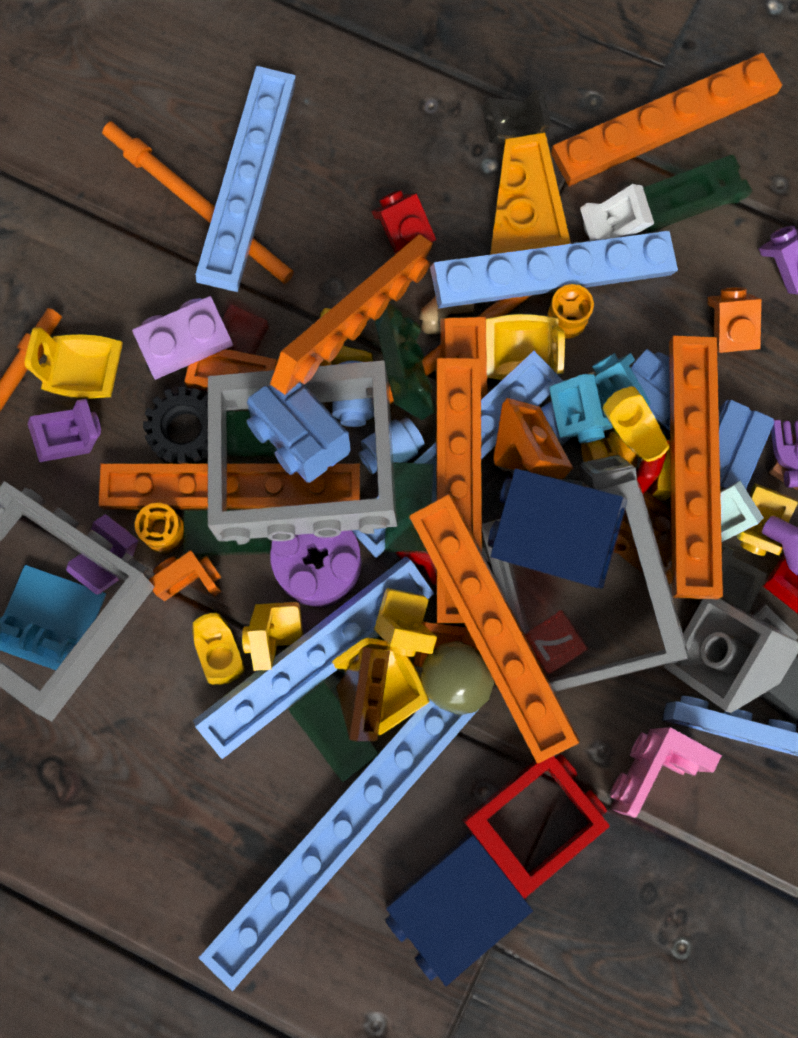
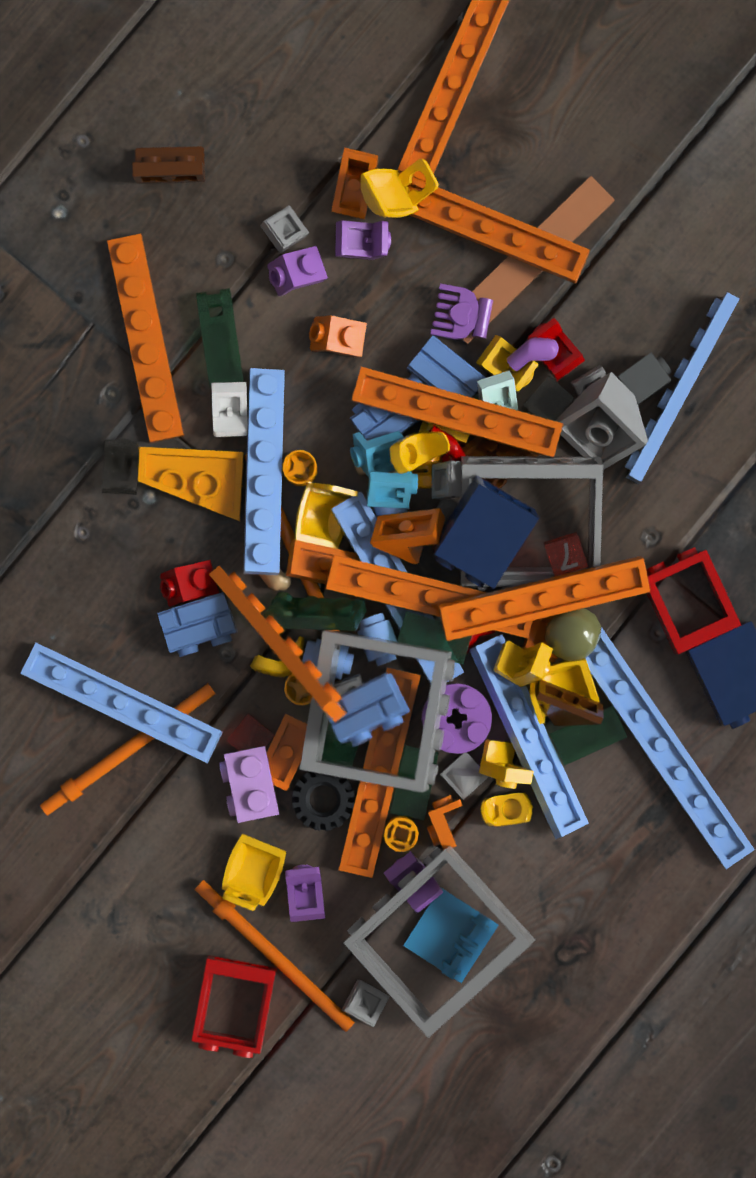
camera: 75 degrees left, 10 degrees up
(249, 587) = (463, 775): none -> light grey tile
(355, 235) = (198, 623): none -> medium blue brick
(652, 751) = (668, 484): bright pink bracket -> none

